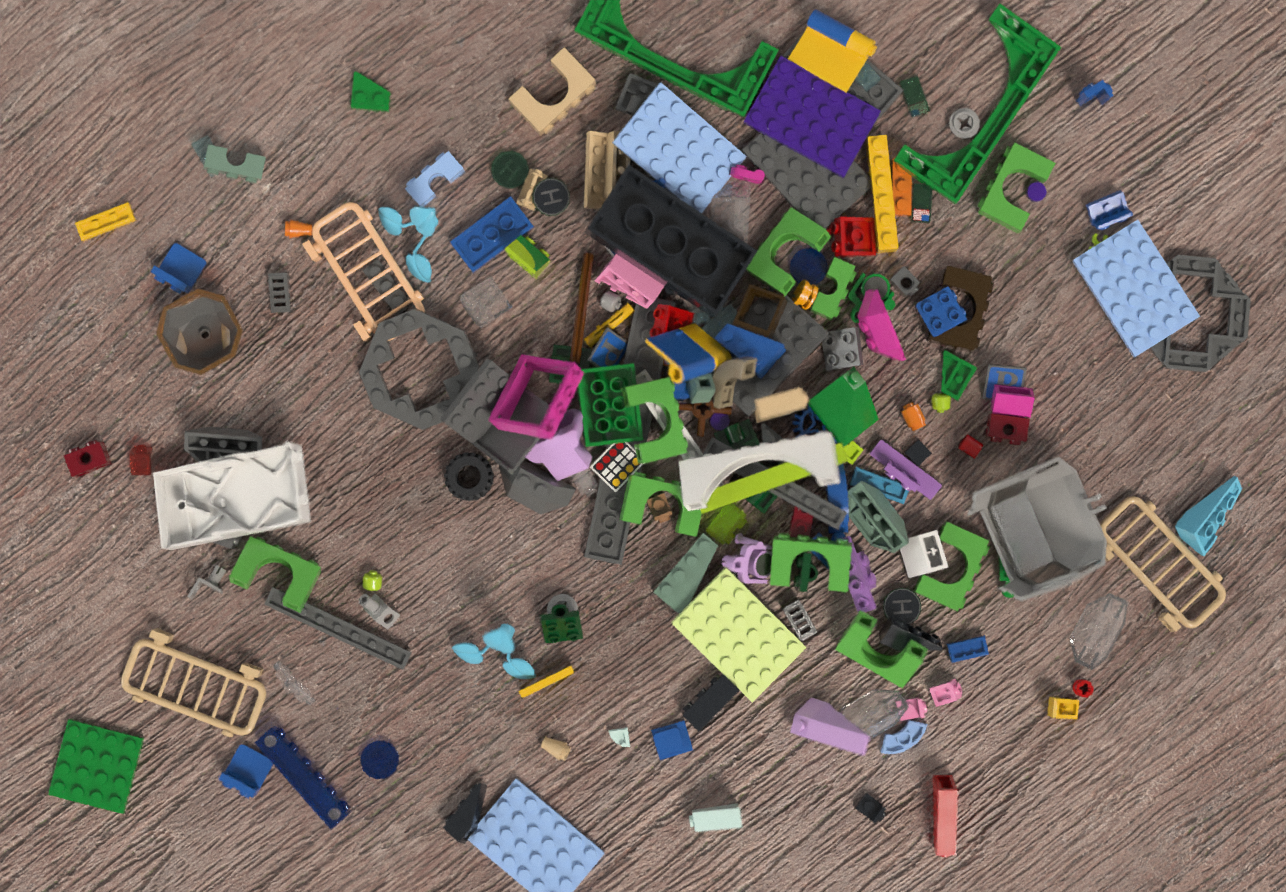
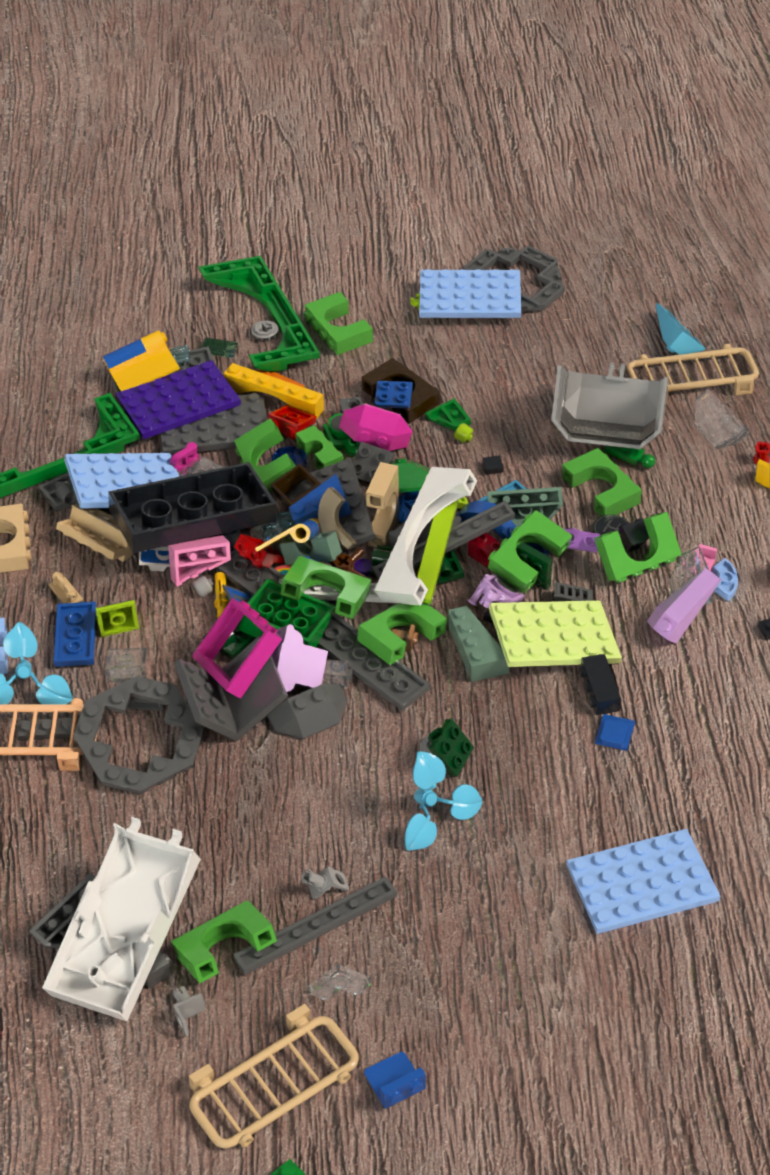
camera: 55 degrees left, 40 degrees down
(140, 460) = (21, 999): clear red bracket -> none
(303, 777) = (438, 1032): clear blue piece -> none
(372, 581) = (293, 874): lime piece -> none
(379, 759) = (468, 962): clear blue tile -> none
(457, 464) = (263, 761): black tyre -> none
(466, 818) = (578, 915): black slope -> none
(510, 169) = (35, 599): clear green tile -> none
(546, 681) = (492, 789): yellow tile -> none
(550, 197) = (84, 580): black tile -> none
(556, 748) = (560, 814): tan cone -> none
(581, 309) = (184, 600): reddish brown axle -> none
(616, 465) = (342, 643): sticker -> none
(620, 736) = (585, 766): light aqua tile -> none
(716, 818) = (710, 723): light aqua slope -> none
(726, 523) = (450, 596): clear neon green brick -> none
(805, 294) = (309, 461): light orange wheel -> none
(905, 471) = (504, 474): medium lavender bracket -> none
(913, 416) = (461, 451): orange brick -> none
(921, 203) = (302, 376): clear green tile -> none
(923, 554) = (579, 491): white slope -> none
(946, 692) = (705, 533): bright pink bracket -> none
(967, 649) = (678, 505): blue plate -> none
(970, 446) = (513, 431): red beam -> none
(1003, 376) = (479, 390): piece -> none
(1012, 401) = (496, 391): dark pink brick -> none
(1018, 426) = (516, 405): dark red brick -> none
(1036, 192) = (351, 317): dark purple tile -> none
(1101, 91) = (311, 251): blue bracket -> none
(1108, 210) = (400, 286): bracket -> none

